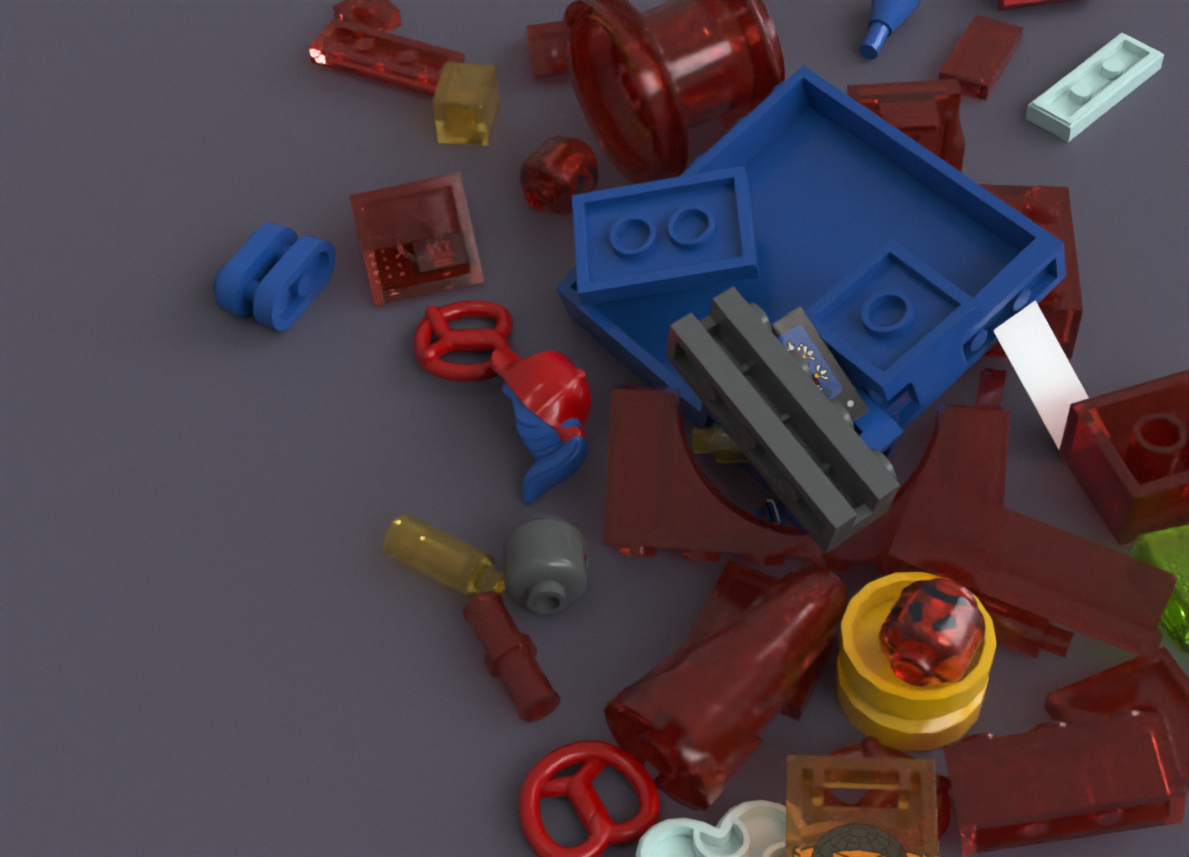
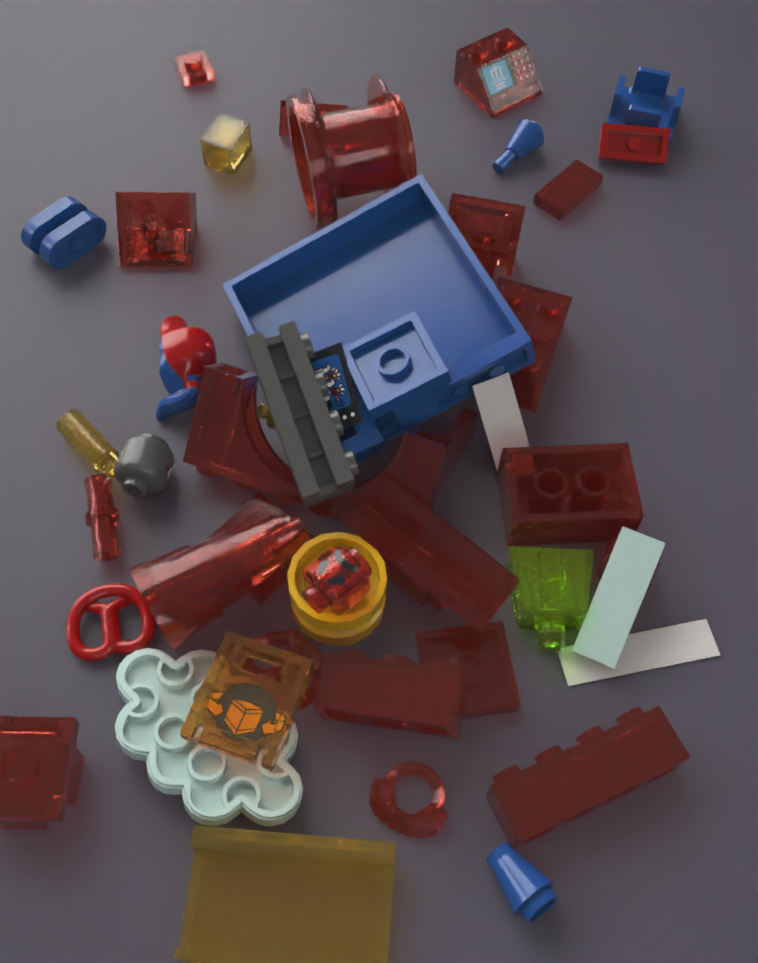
camera: 10 degrees right, 10 degrees up
(382, 56) = (188, 98): clear red plate -> none
(460, 340) = (160, 303): red piece -> none
(558, 171) = (263, 207): clear red head -> none
(664, 236) = (292, 268): blue plate -> none
(1094, 87) = (633, 228): light aqua tile -> none

